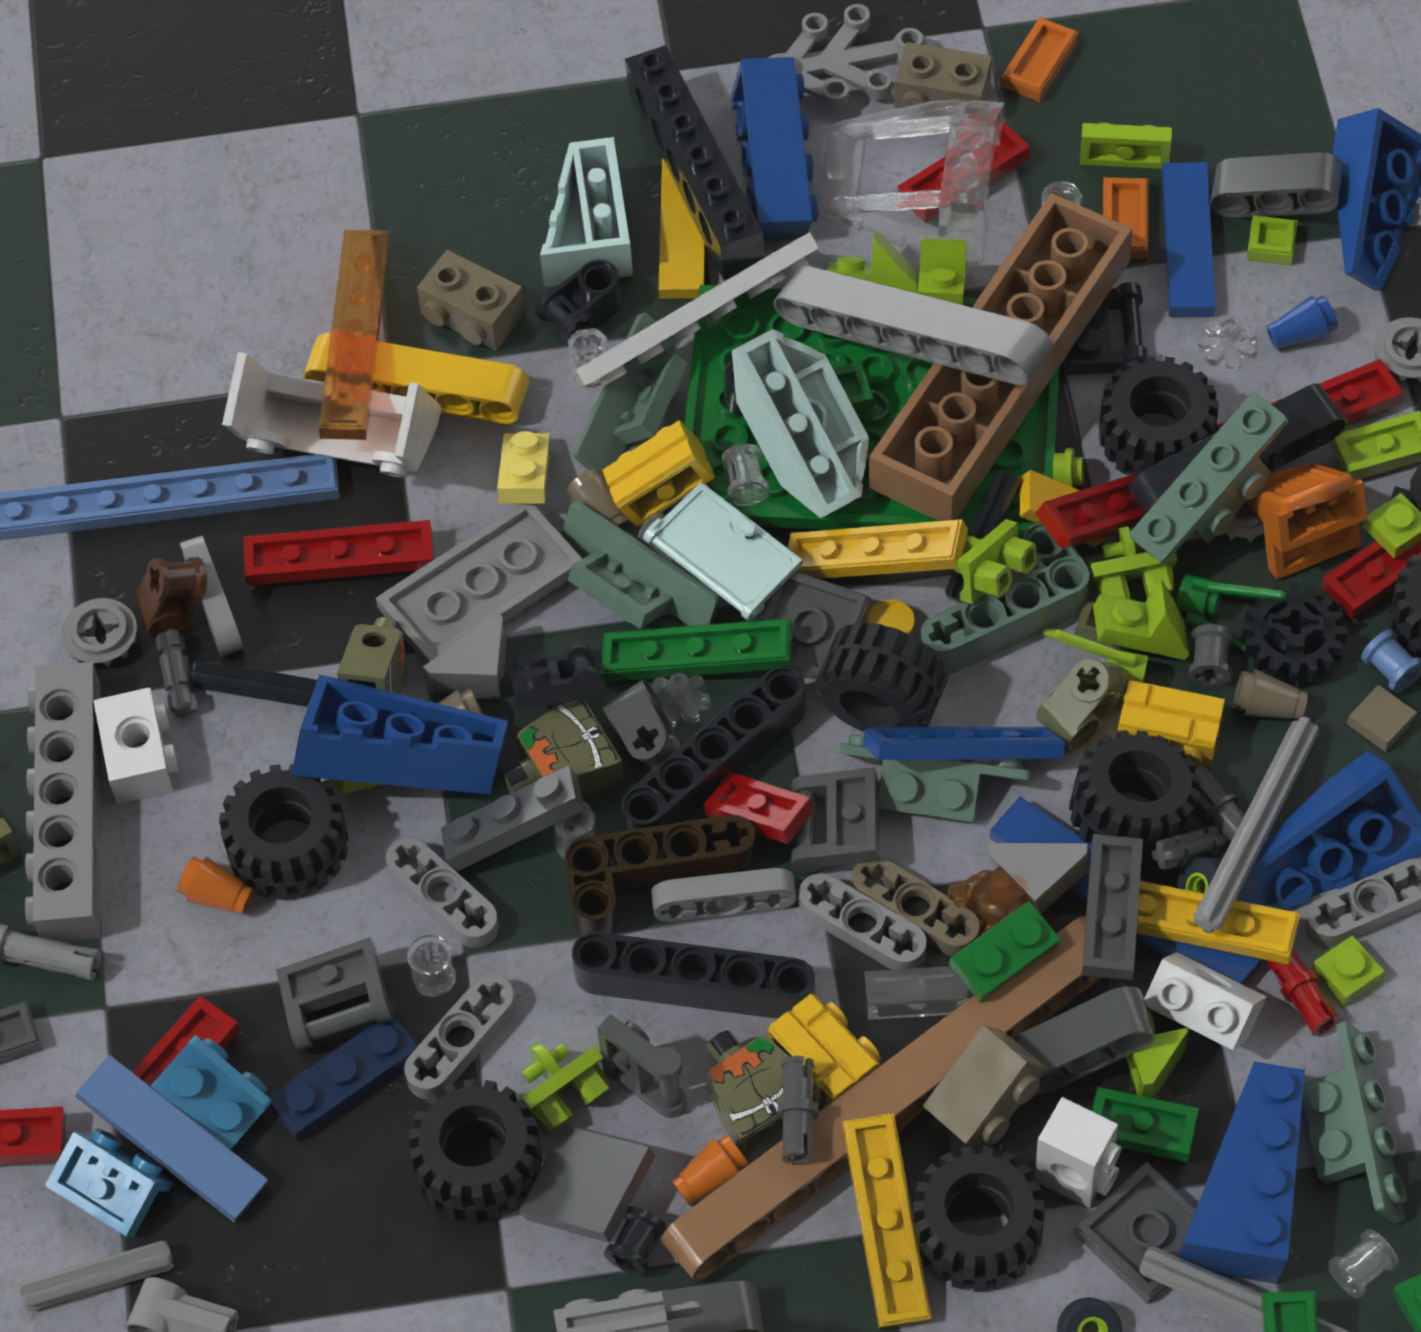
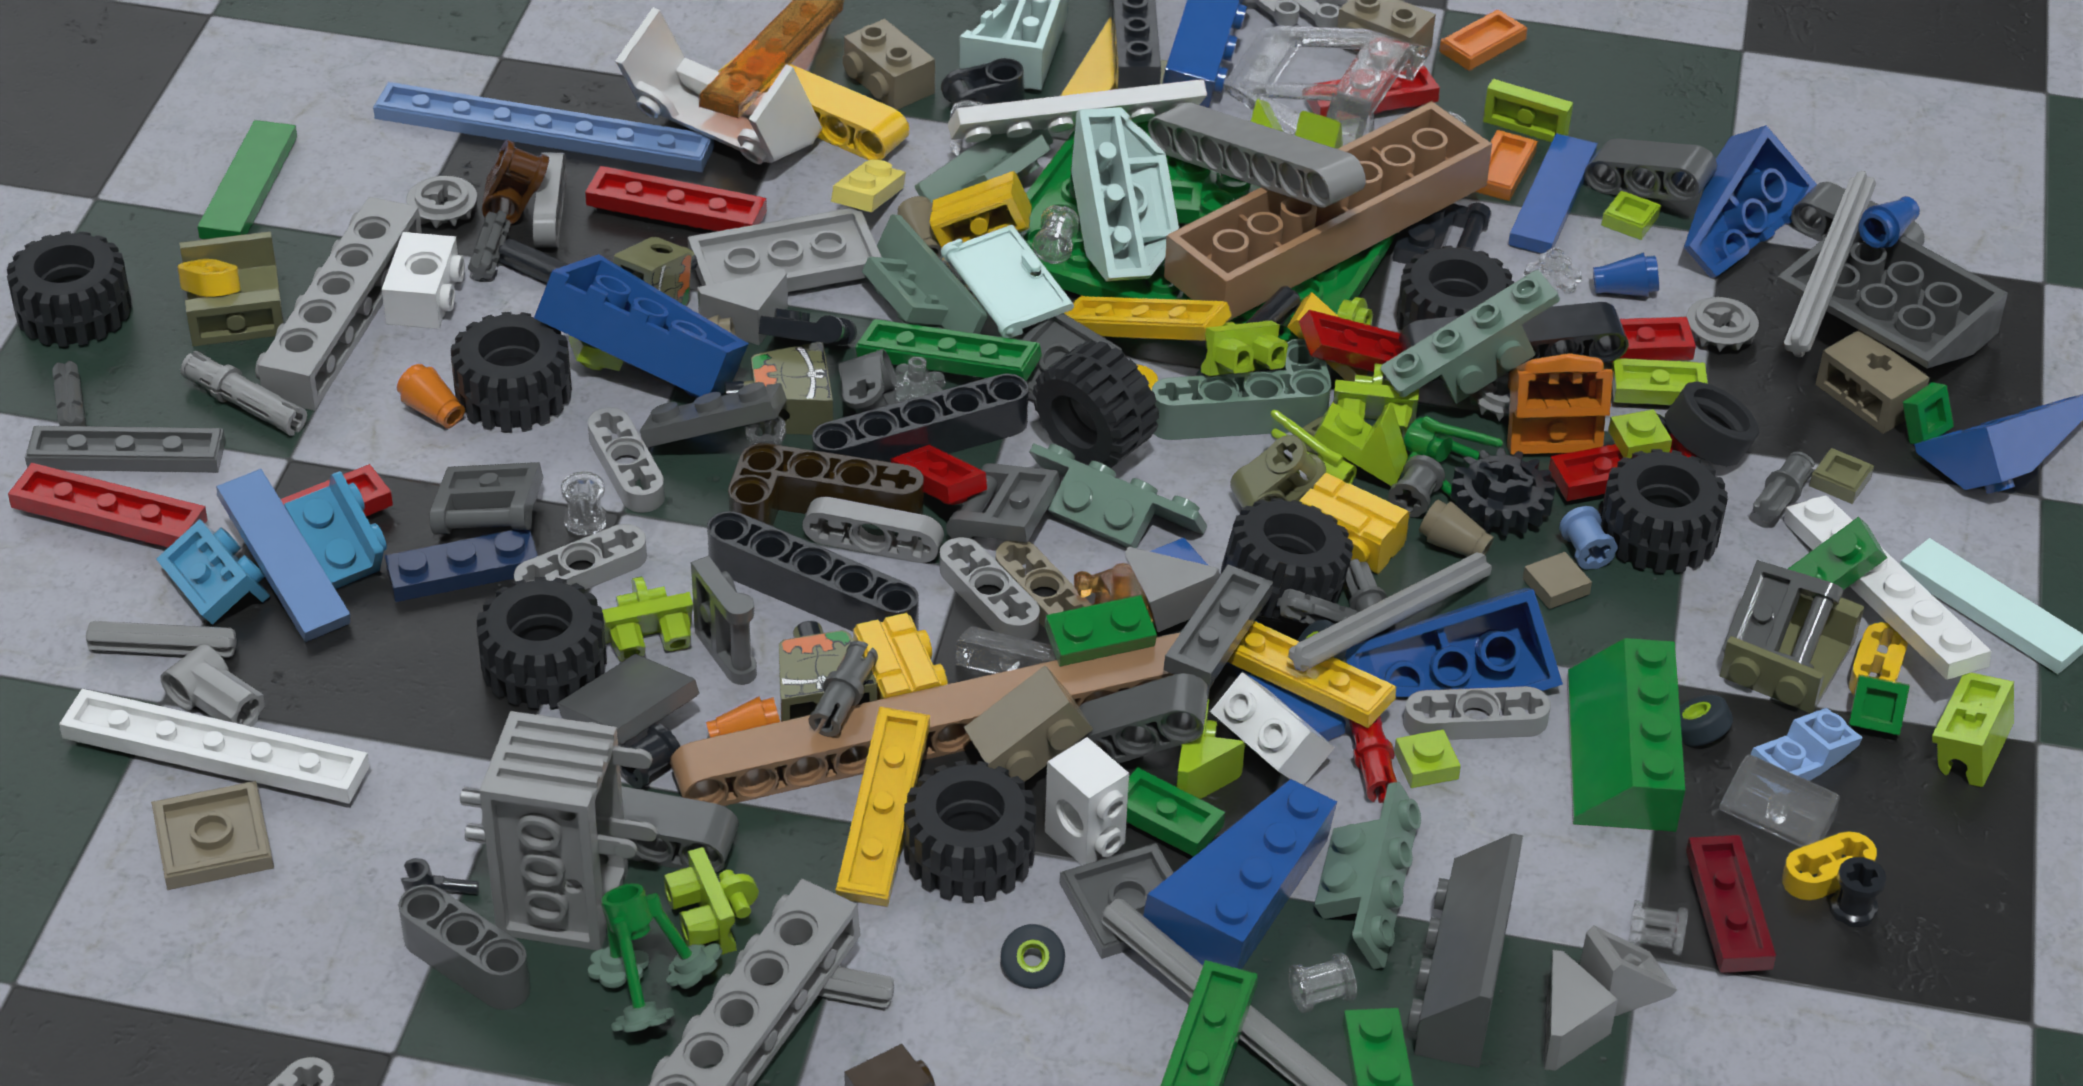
camera: 15 degrees right, 15 degrees down
(962, 743) = (1148, 473): blue tile -> none

